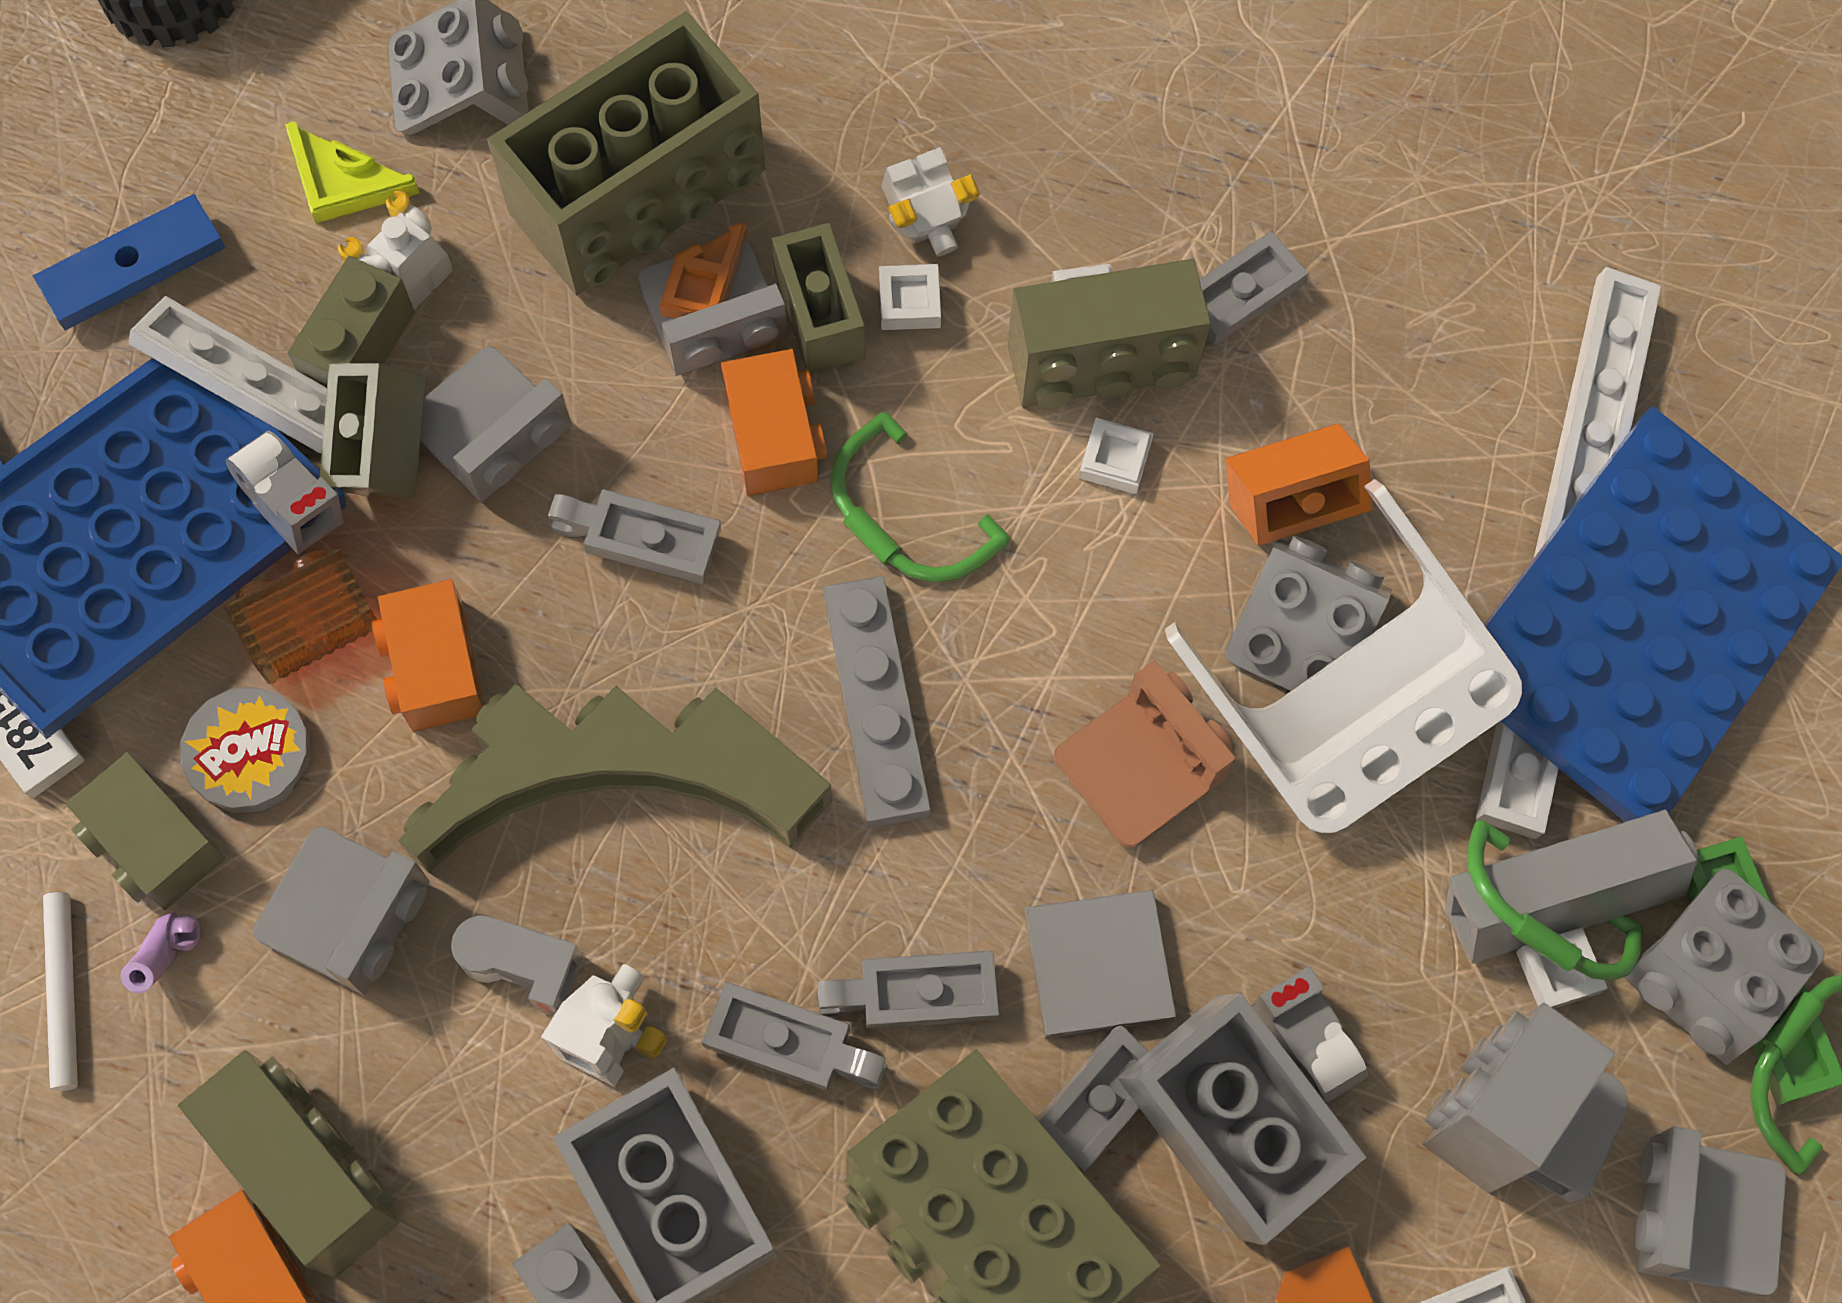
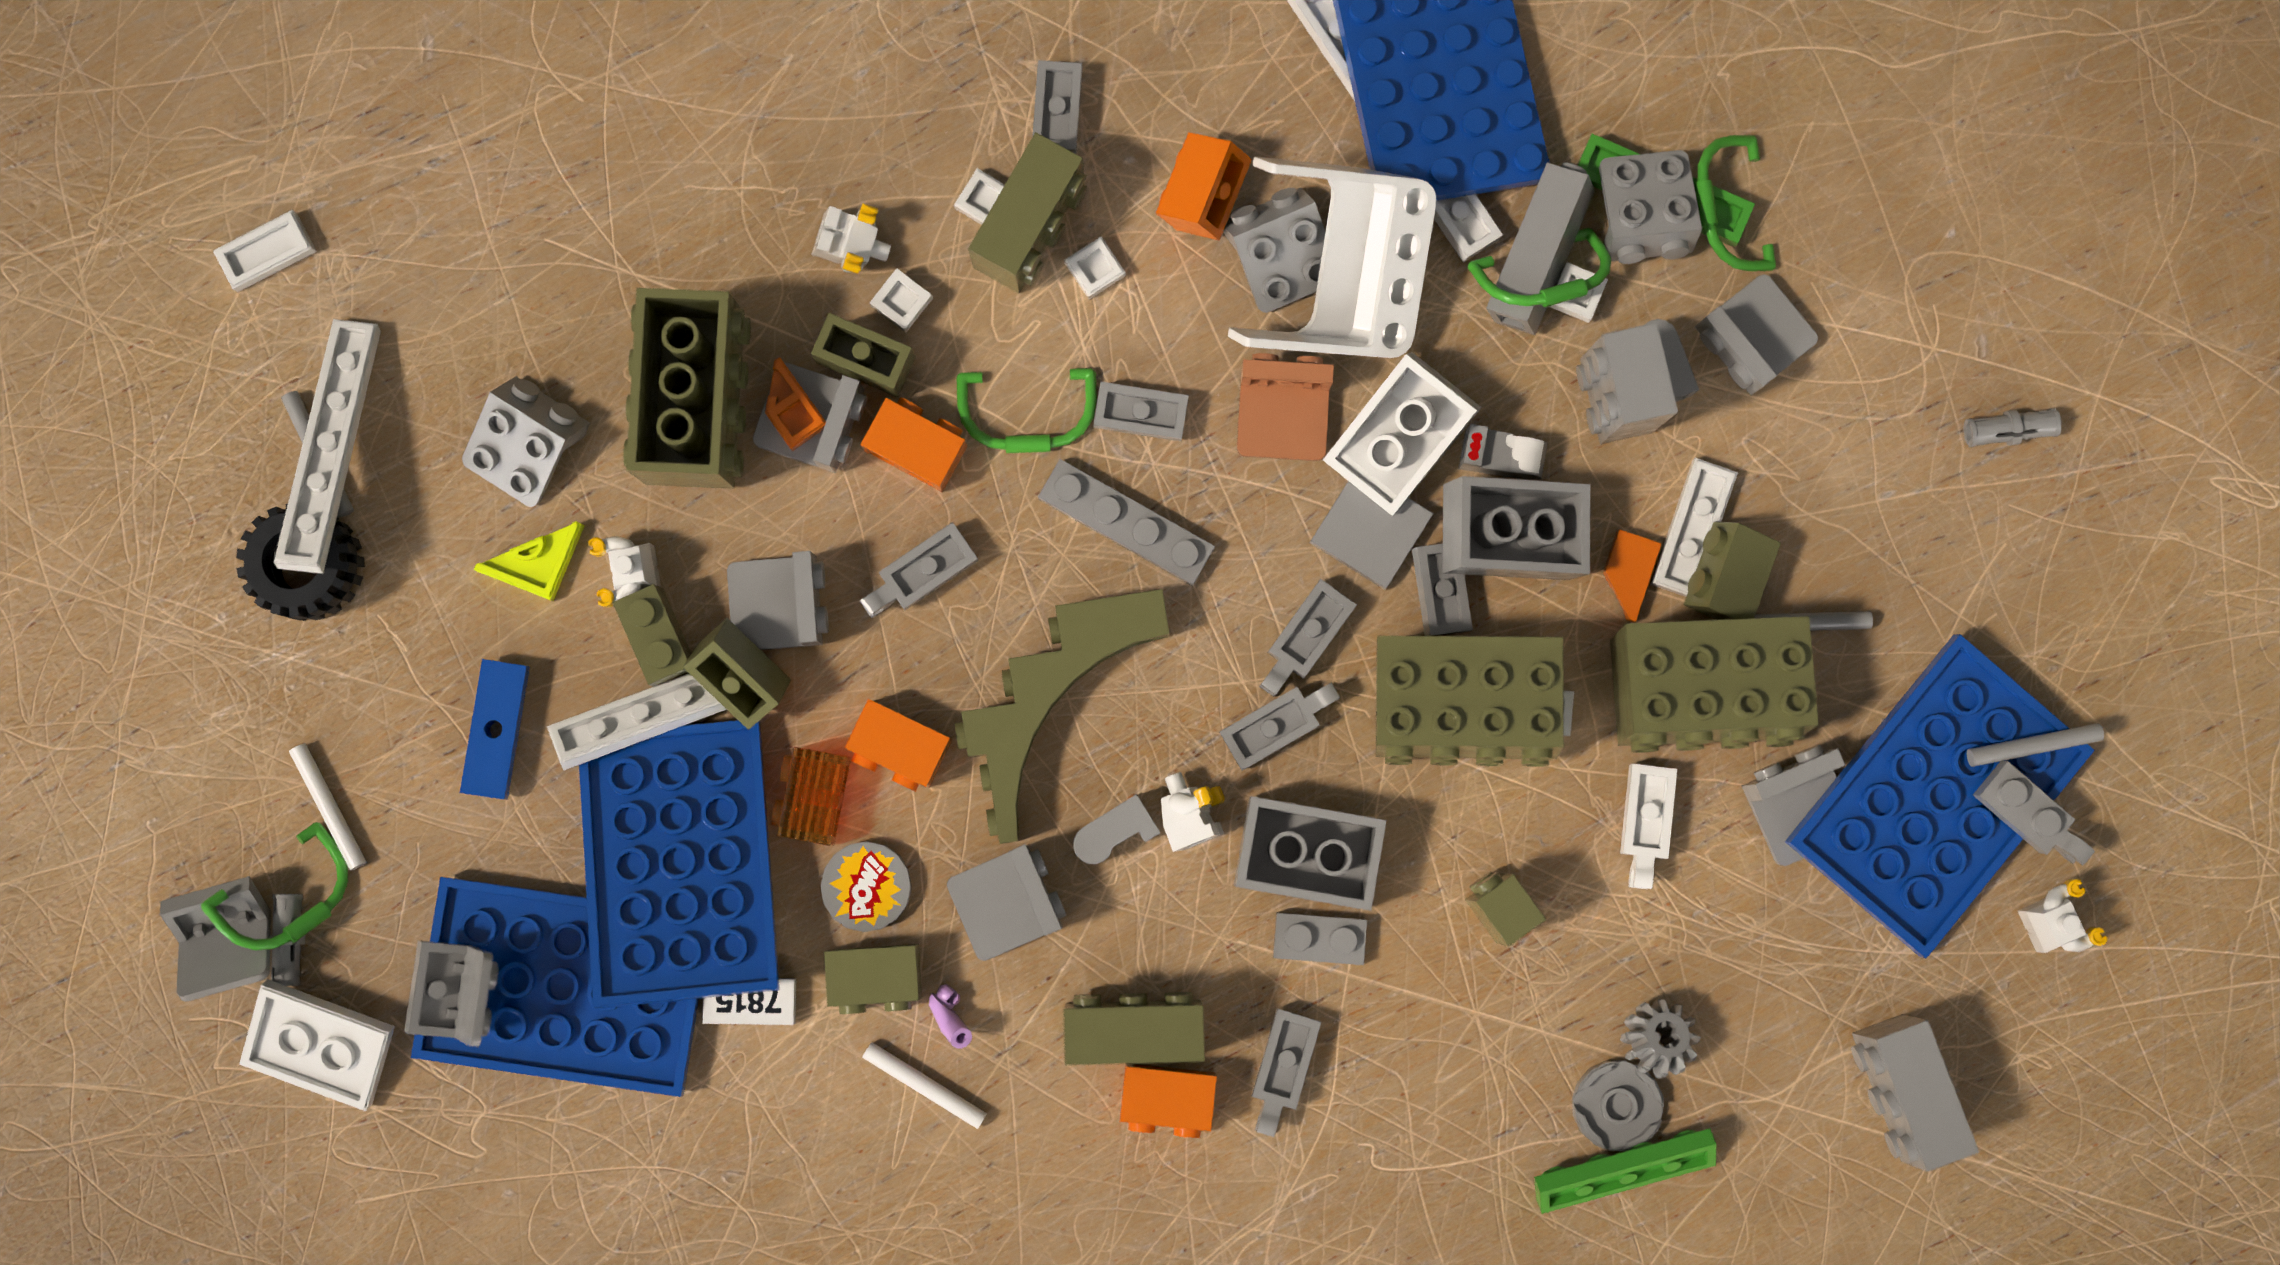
camera: 50 degrees left, 15 degrees up
(285, 491) = (734, 750): light grey leg -> none
(1007, 617) = (1141, 411): none -> light grey plate
(1233, 903) = (1401, 433): none -> white slope

